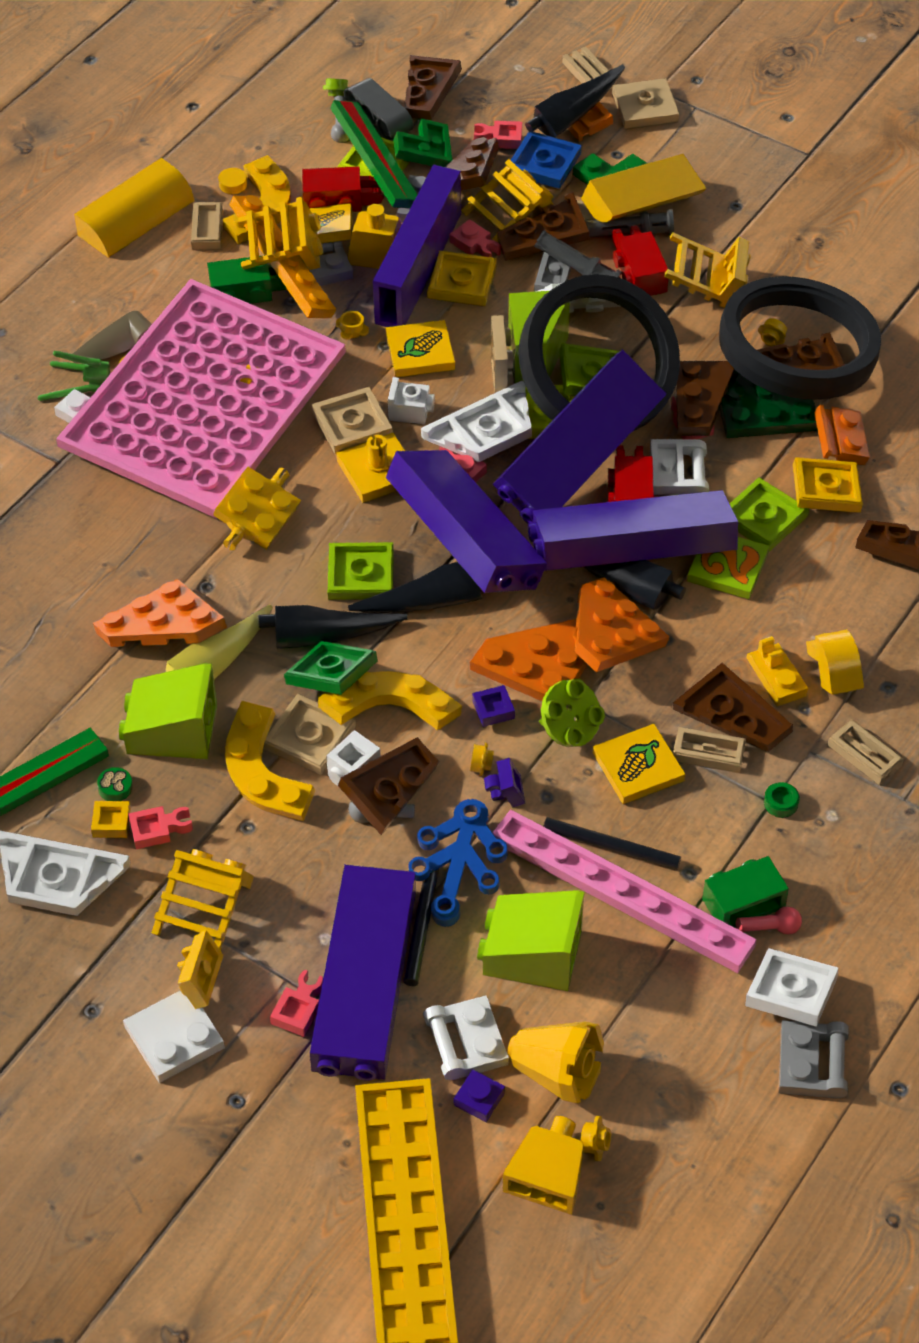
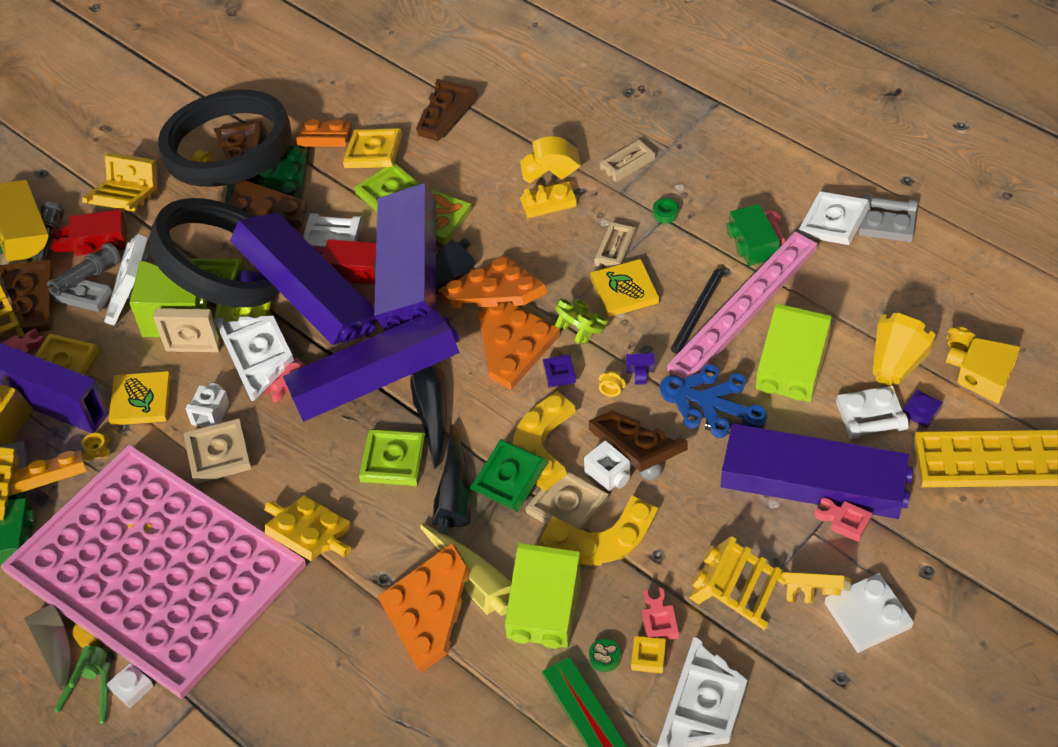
camera: 80 degrees left, 0 degrees up
(369, 464) = (275, 438): yellow tile -> none
(734, 708) = (582, 224): reddish brown wing -> none

